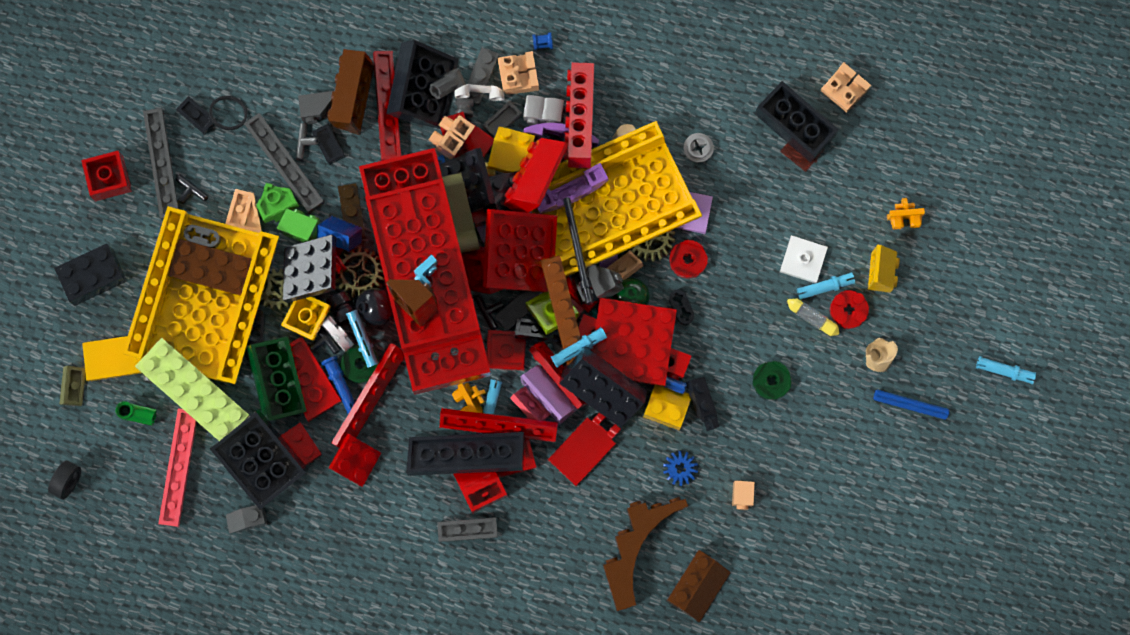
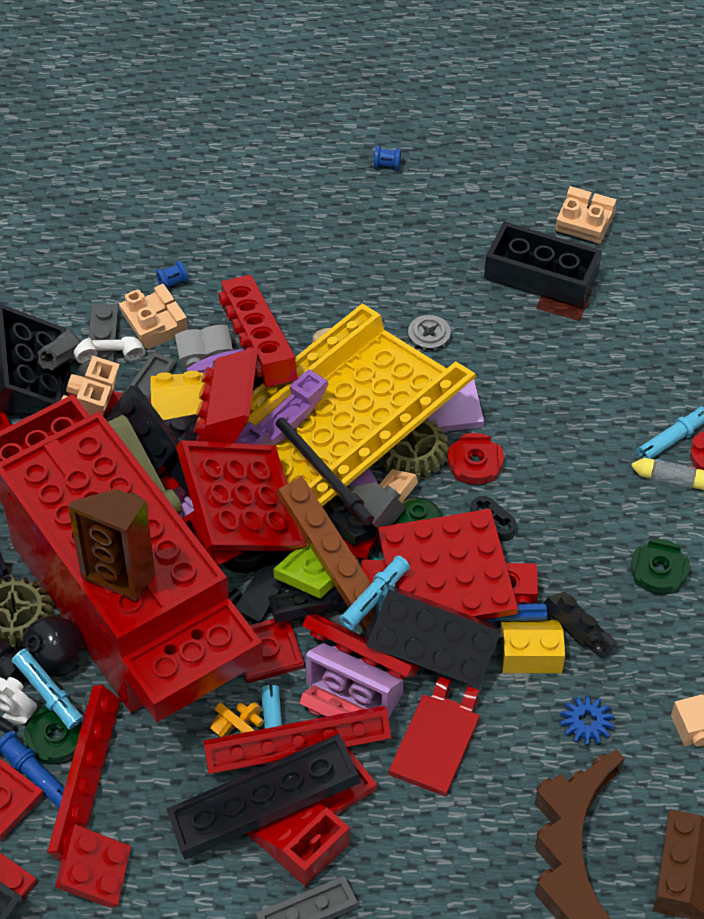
camera: 20 degrees left, 25 degrees down
(803, 259) = (628, 414): white plate -> none

